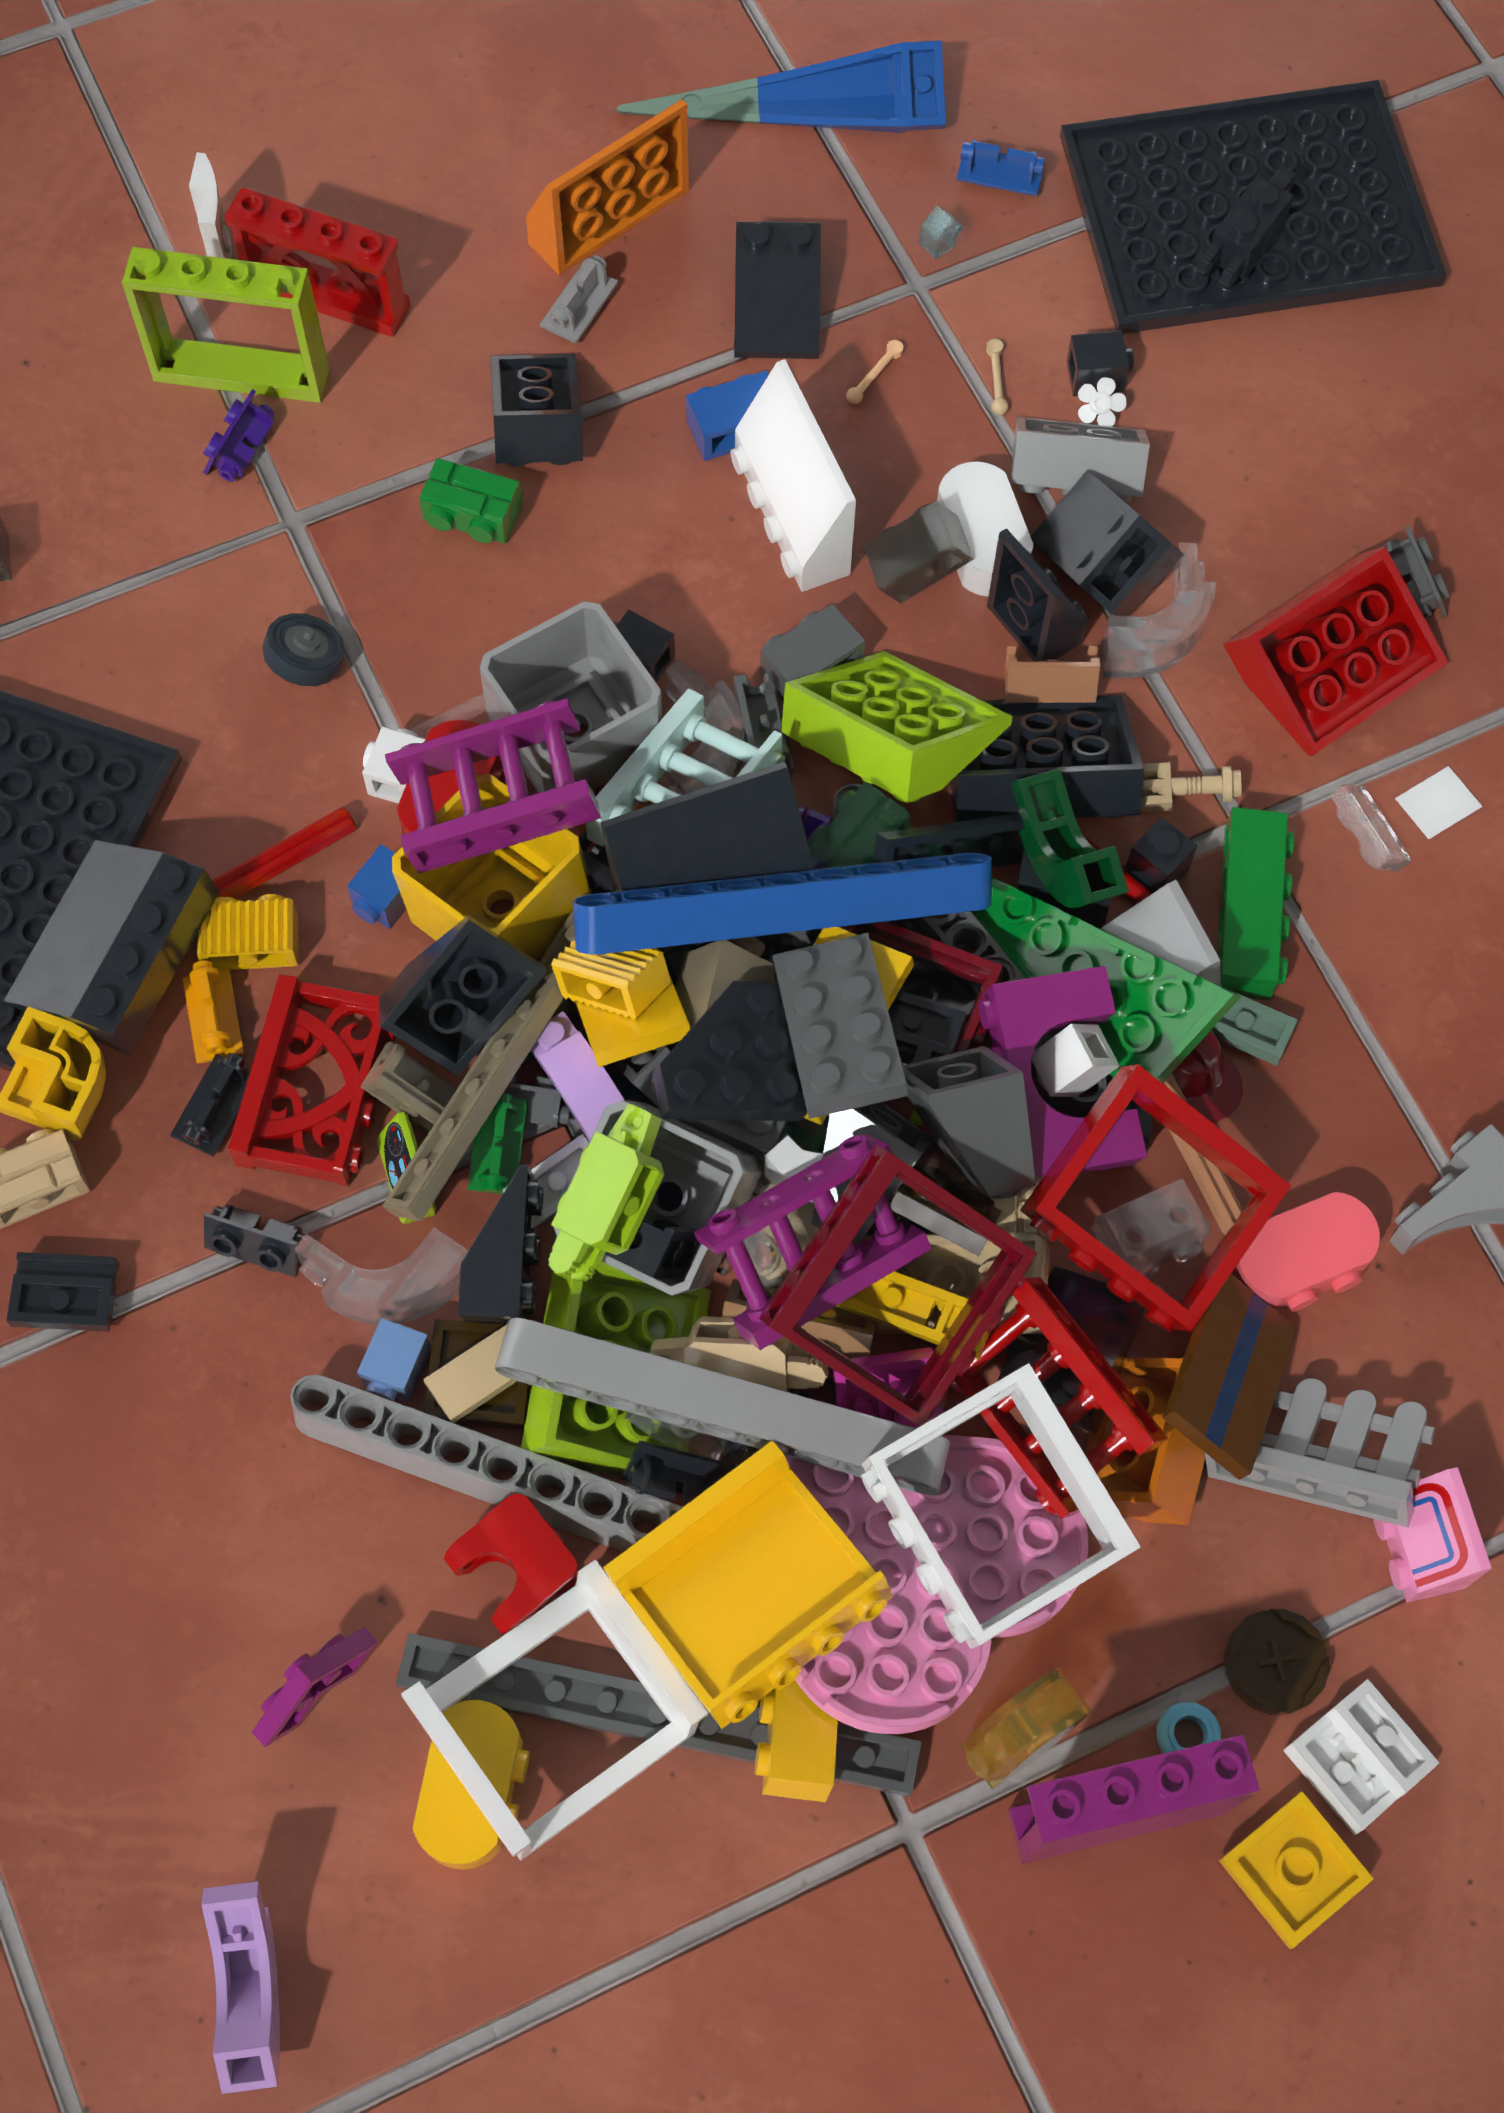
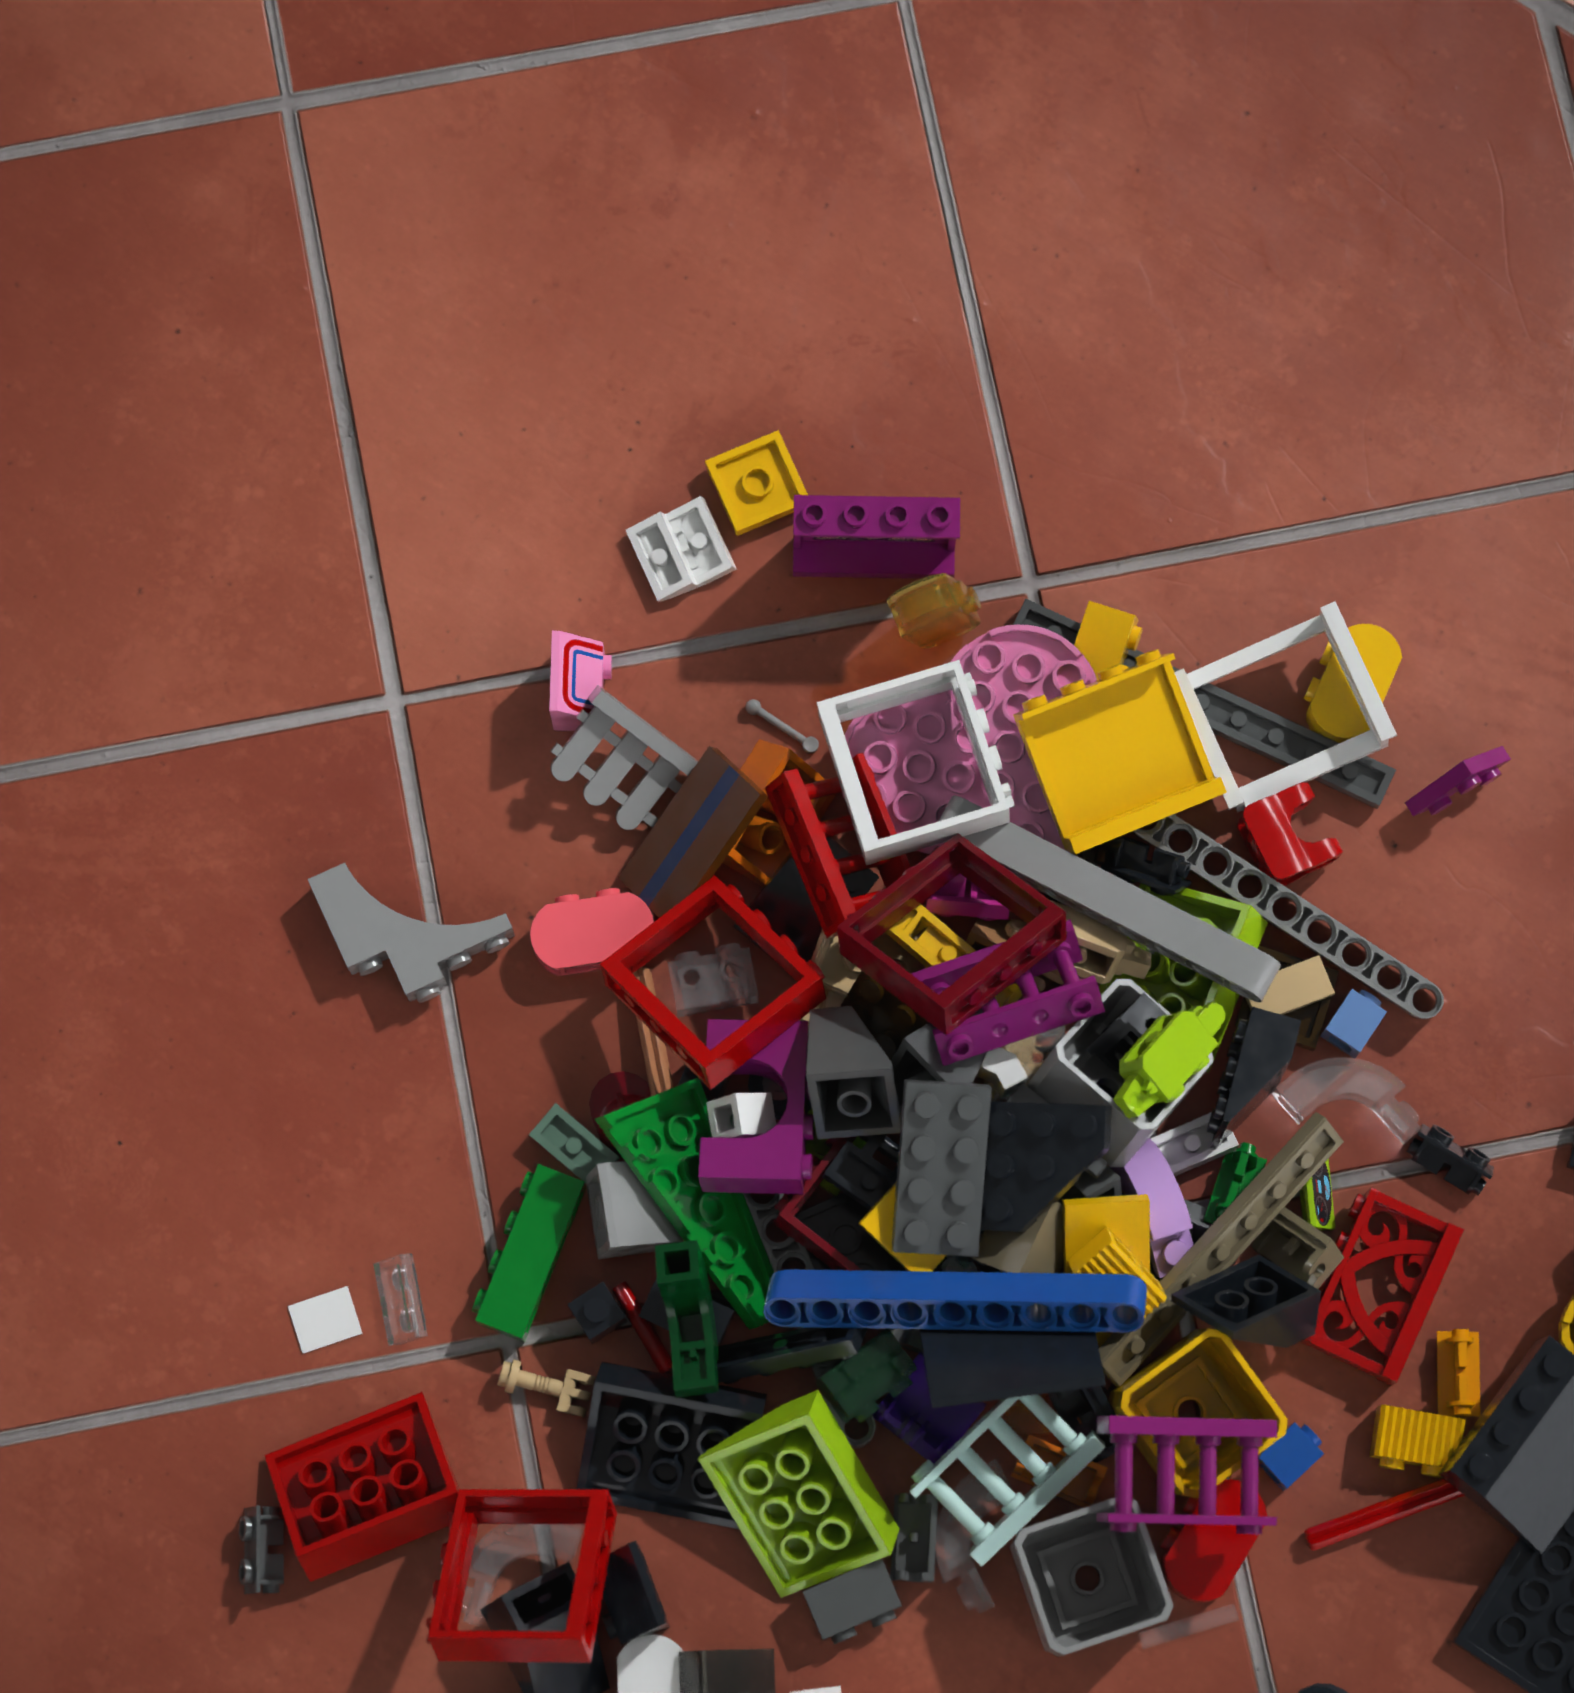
camera: 165 degrees left, 10 degrees up
(213, 1104) = (1469, 1287): black hinge -> none
(246, 1987) = (1540, 578): lavender arch -> none
(377, 775) = (1259, 1580): white brick -> none
(649, 642) = (1011, 1648): black brick -> none
(1051, 679) = (647, 1524): nougat hinge -> none
(1091, 560) = (523, 1506): none -> red window
(1188, 1711) = (804, 612): medium azure piece -> none
(1205, 1574) = (810, 744): none -> light grey hinge
(1276, 1661) = (720, 632): dark brown tile -> none

